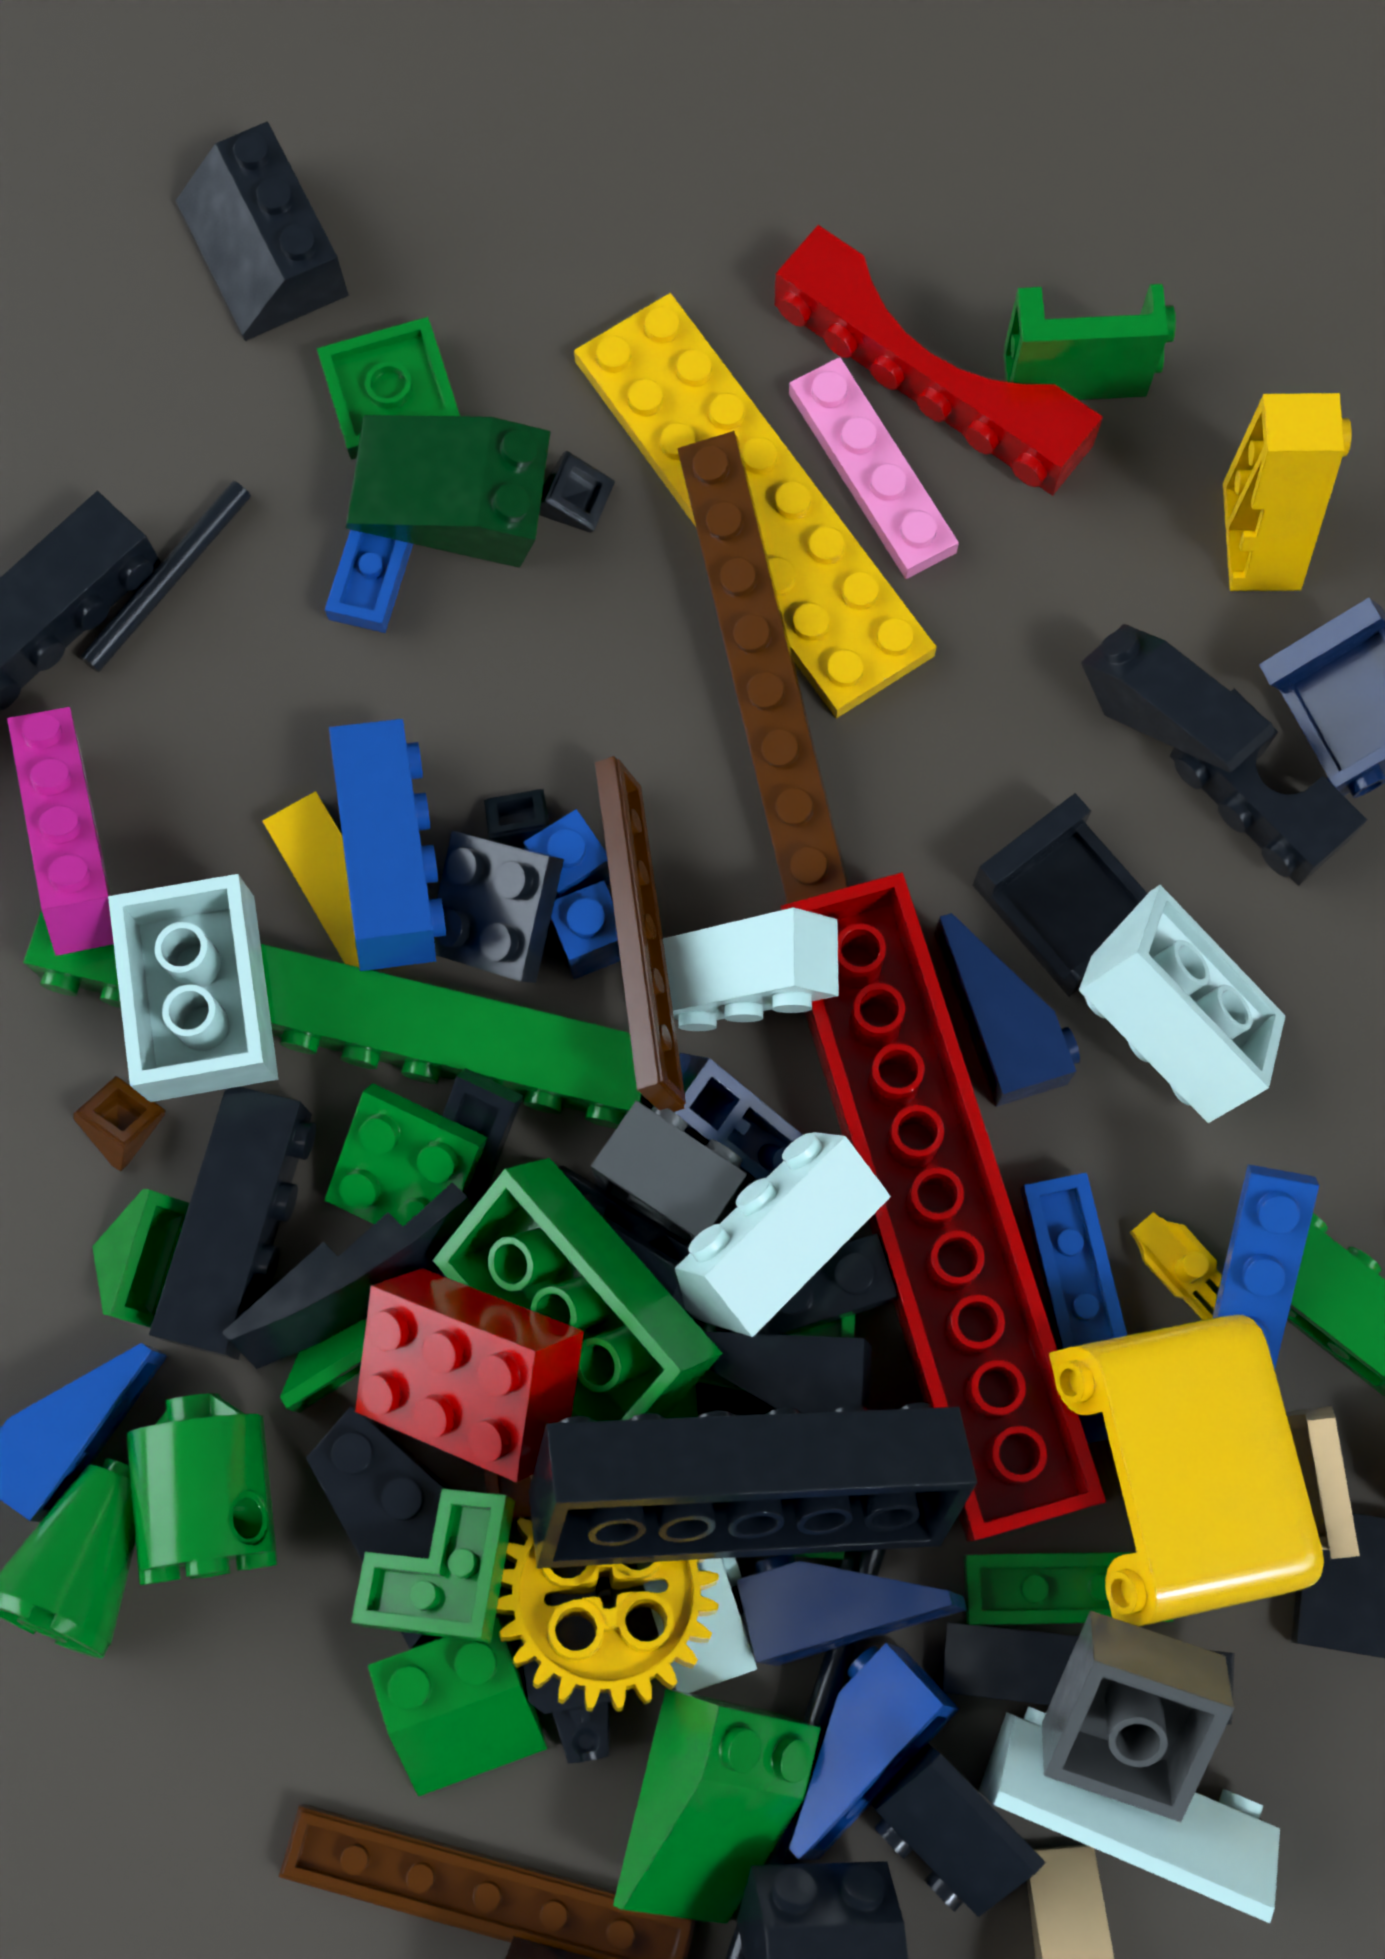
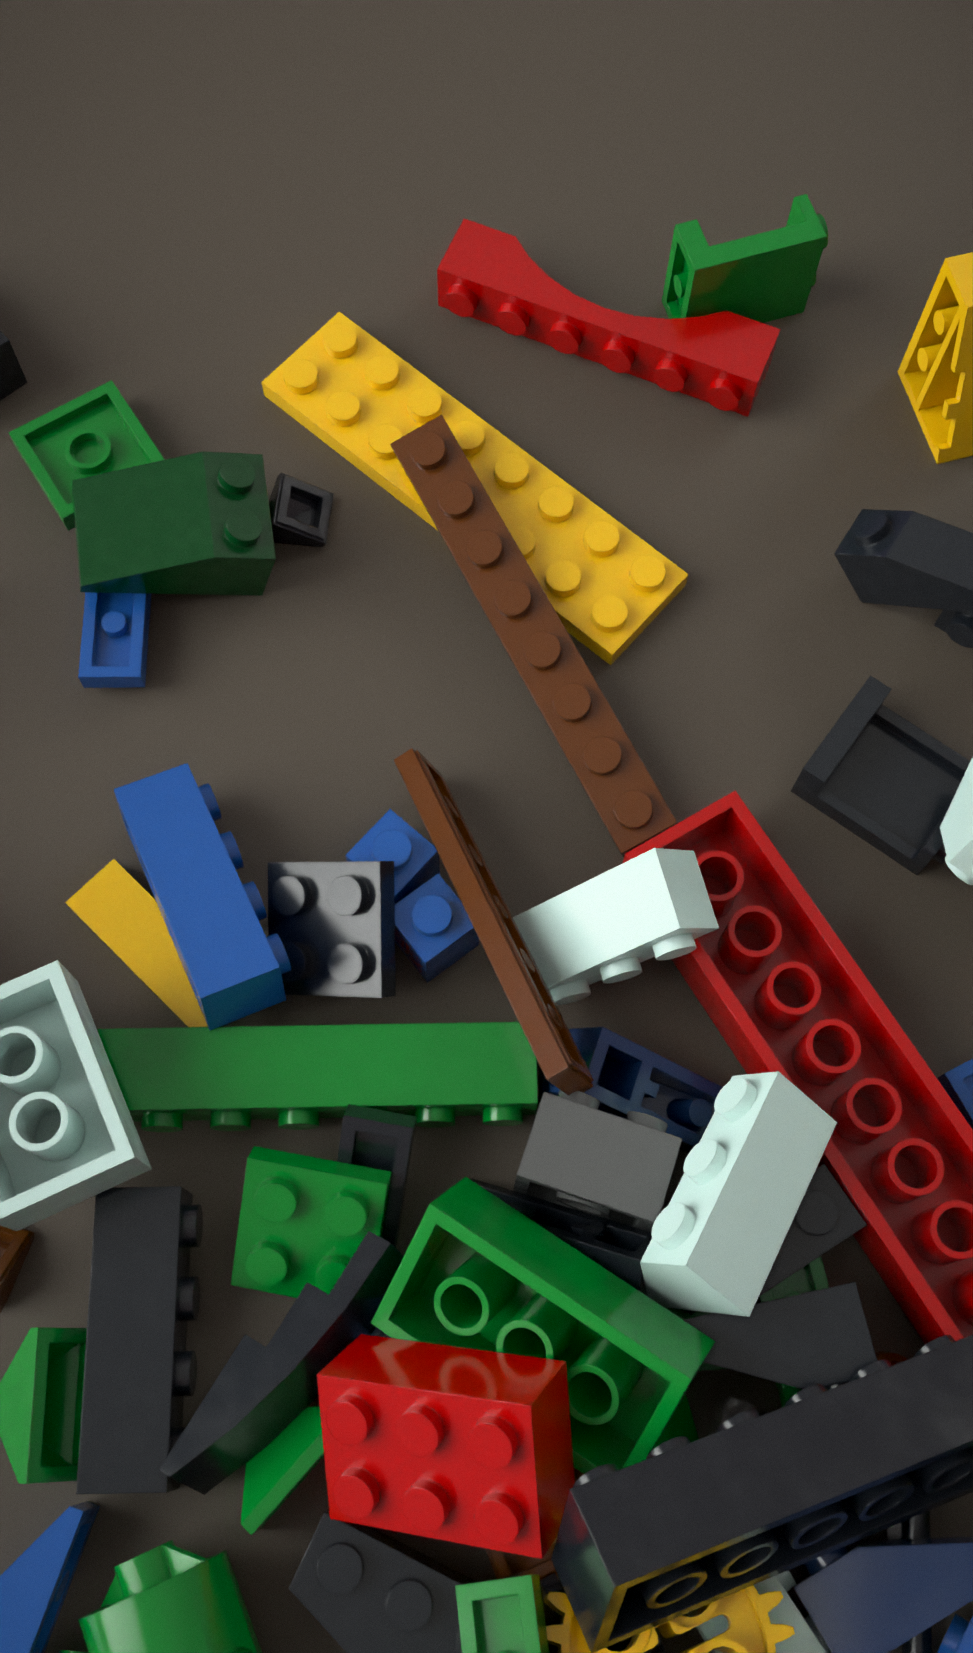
camera: 20 degrees left, 5 degrees down
(516, 816) = (326, 834): black slope -> none
(873, 468) = (576, 427): bright pink plate -> none
(1008, 1023) = (877, 917): dark blue slope -> none

